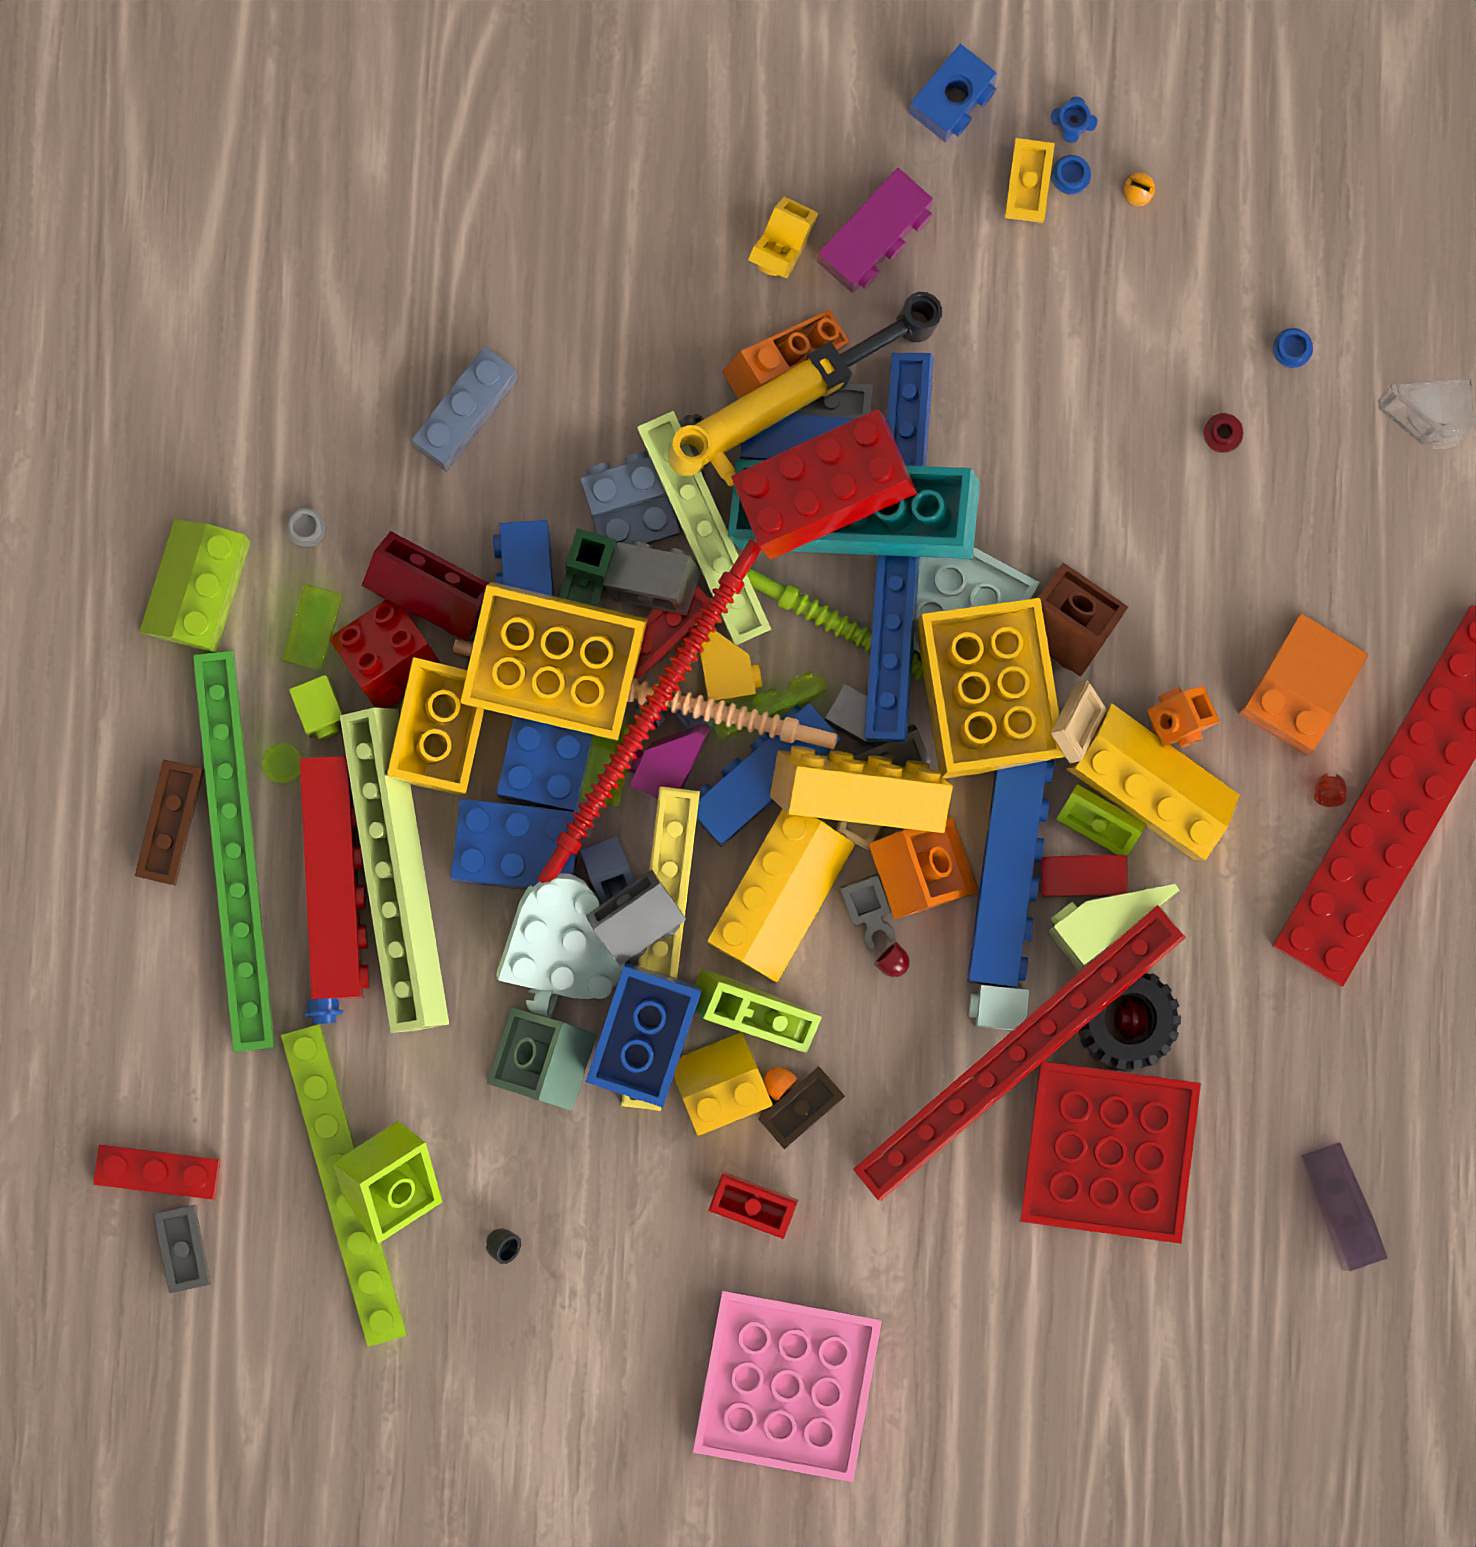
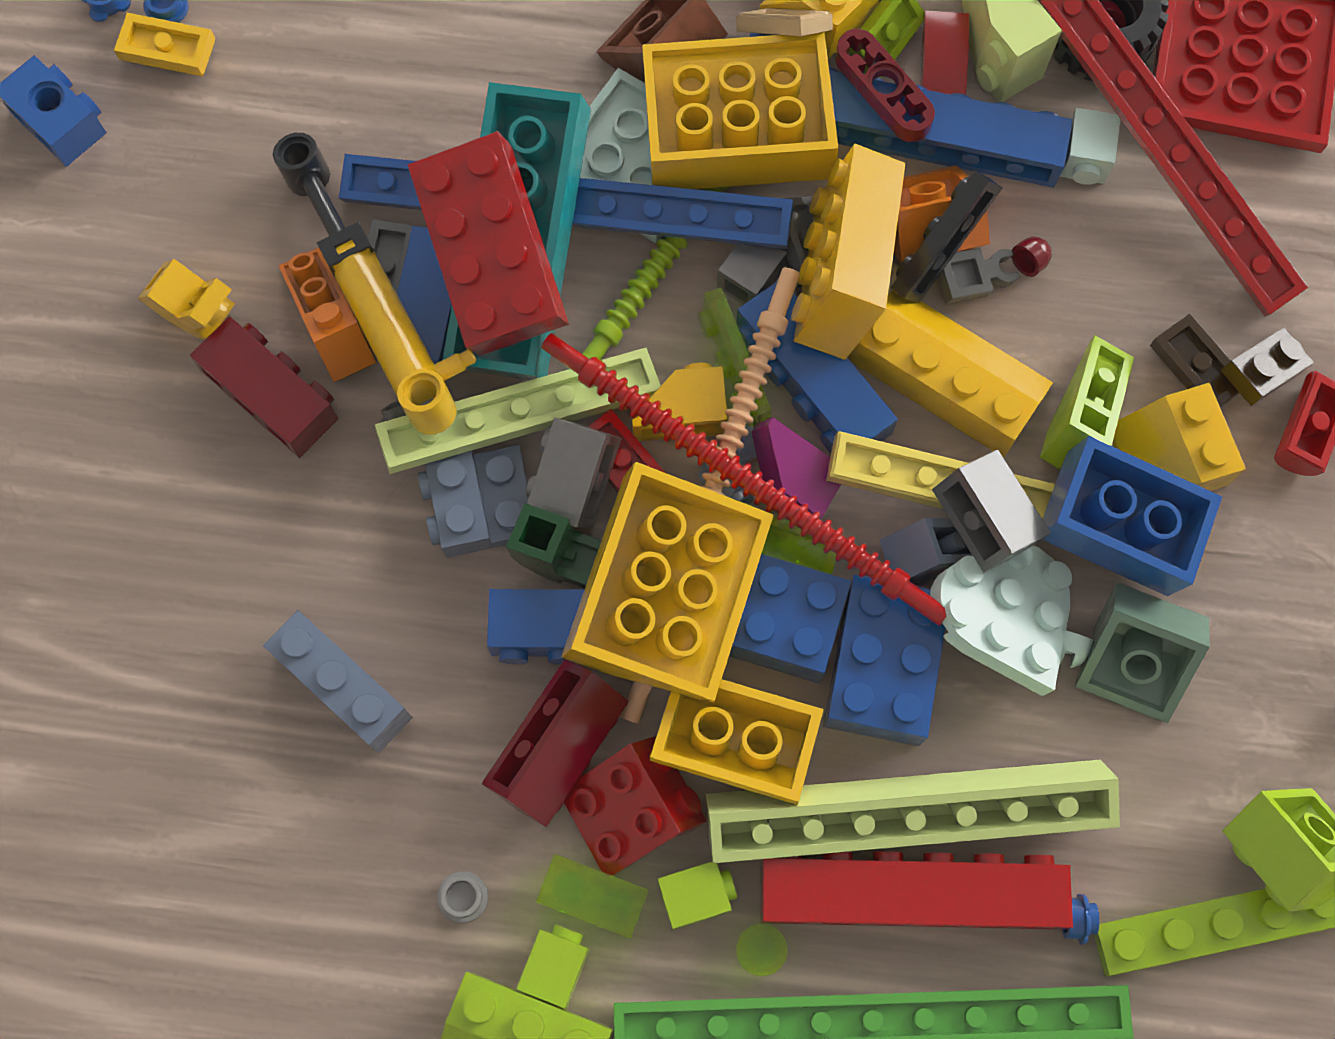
camera: 85 degrees left, 10 degrees down
(256, 603) = (554, 966): none -> lime brick
(713, 315) = (266, 385): none -> dark red brick
(779, 1082) = (1169, 381): orange hinge -> none
(801, 1164) = (1267, 366): none -> plate
(876, 231) = (195, 202): magenta brick -> none
(884, 873) = (945, 236): none -> black plate
(1059, 804) = (883, 65): none -> dark red beam

